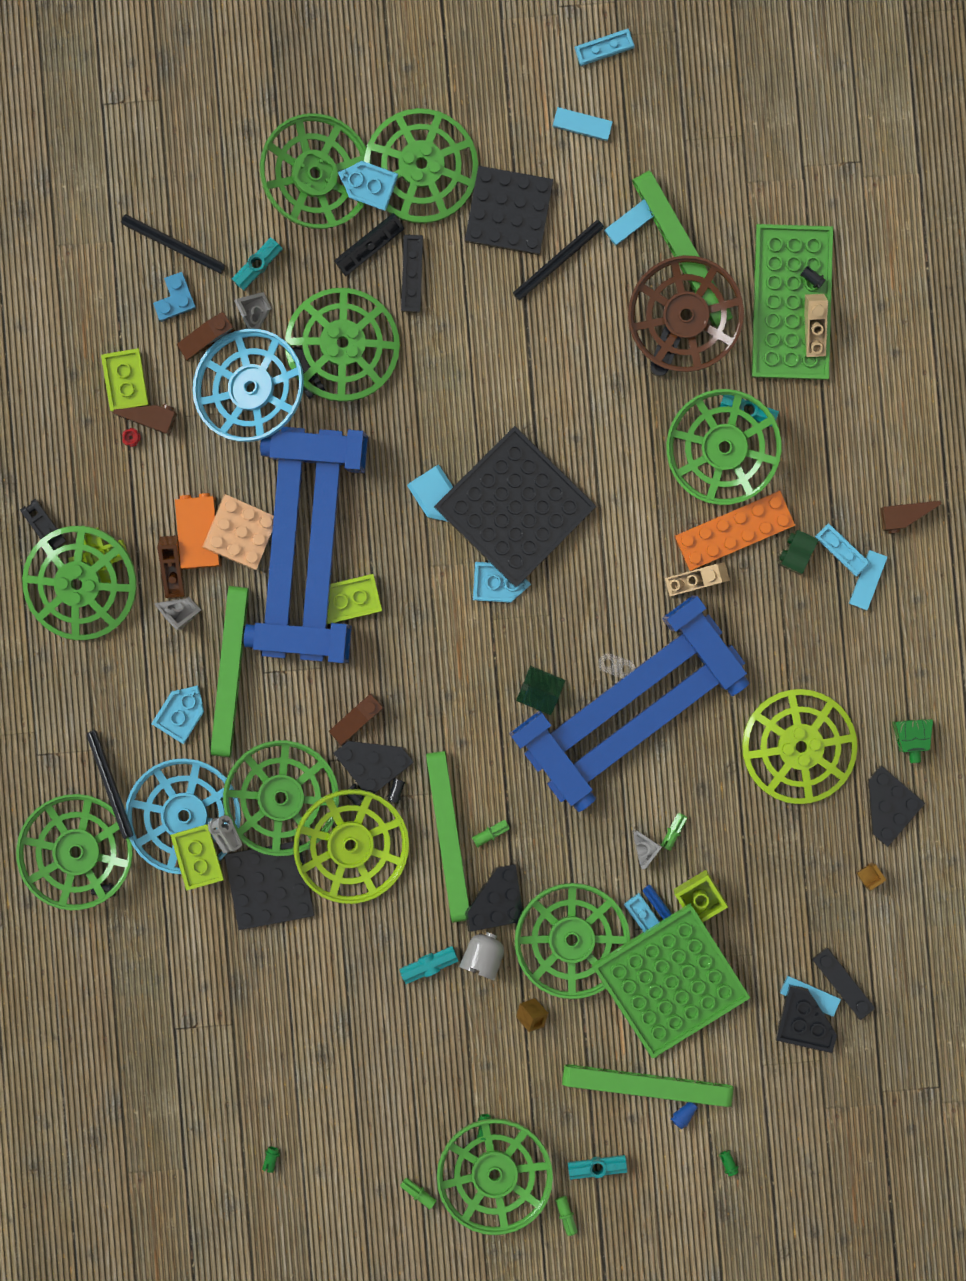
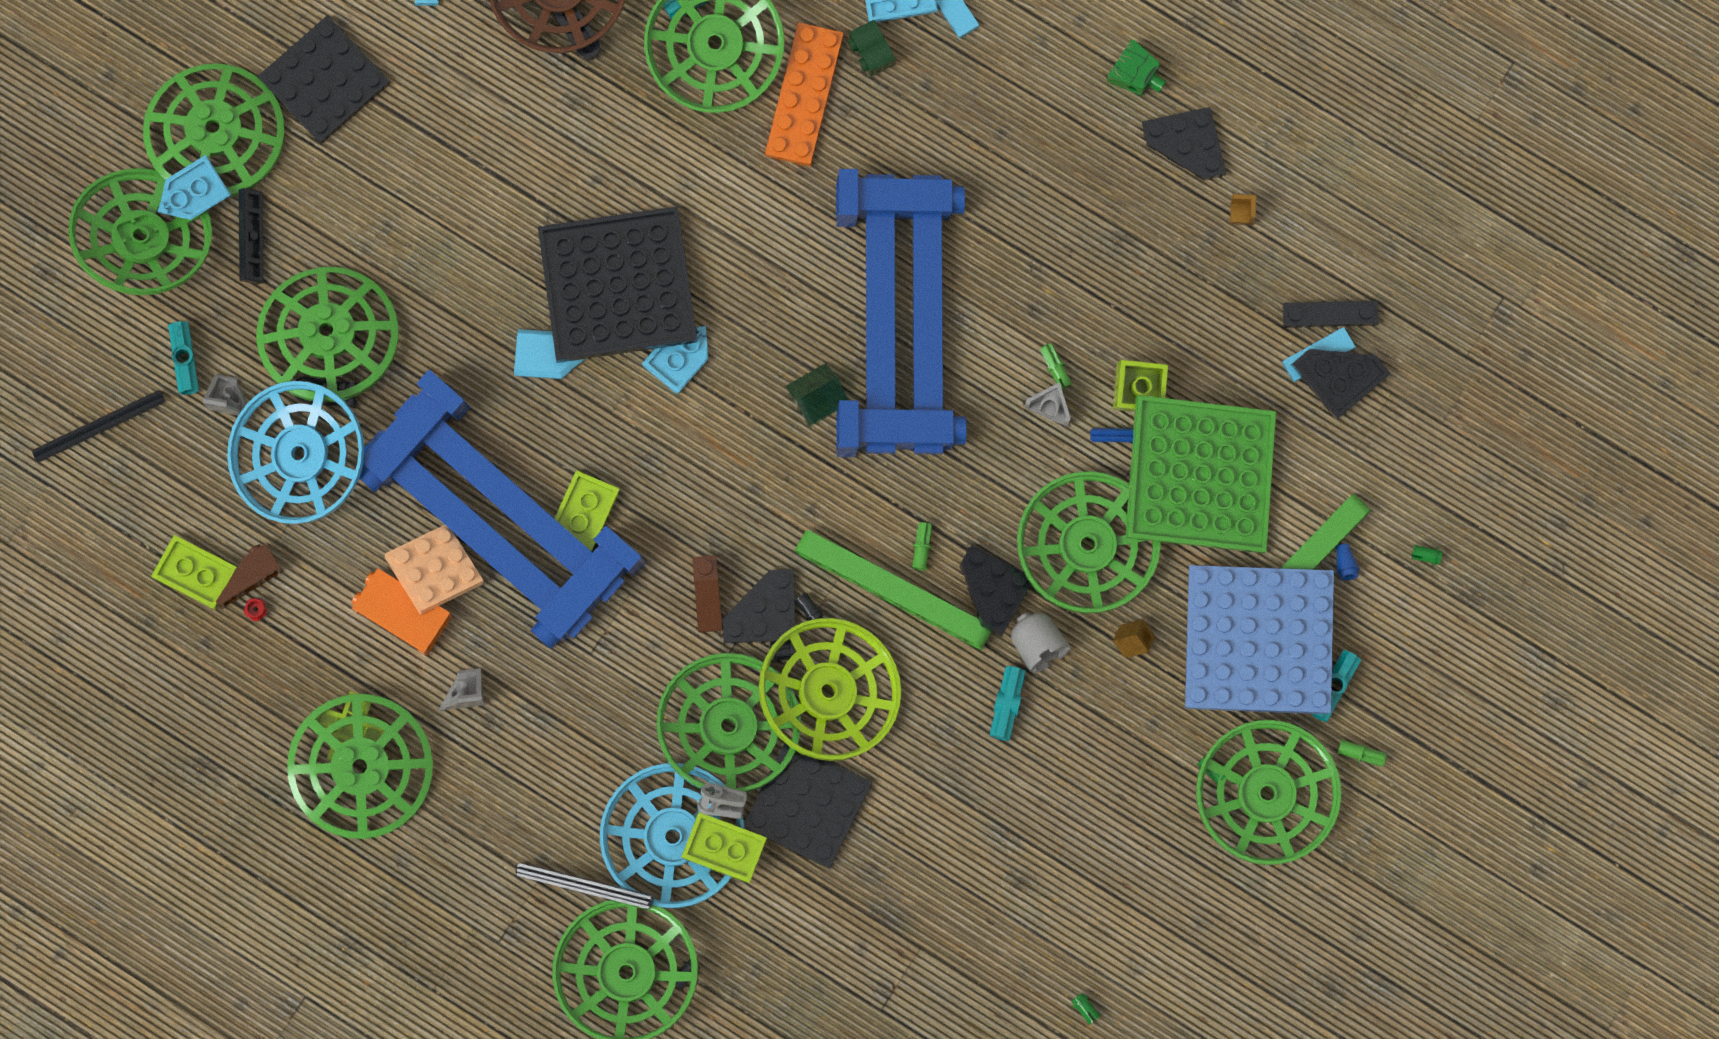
camera: 50 degrees left, 10 degrees down
(42, 523) = (270, 760): black plate -> none
(170, 566) = (415, 663): reddish brown slope -> none
(179, 300) = (159, 464): dark azure plate -> none
(180, 713) = (567, 765): medium azure tile -> none
(205, 335) = (214, 460): reddish brown slope -> none
(229, 671) = (564, 684): bright green beam -> none
(412, 273) = (311, 216): black plate -> none
(418, 1193) = (1230, 885): bright green axle -> none
(558, 260) = (409, 68): black axle -> none
(589, 1099) = (1259, 639): none -> medium blue plate
(616, 665) = (848, 302): clear plate -> none
(641, 912) = (1111, 458): medium azure tile -> none
(697, 579) = (824, 163): tan slope -> none
(787, 746) = (1063, 199): lime dish -> none

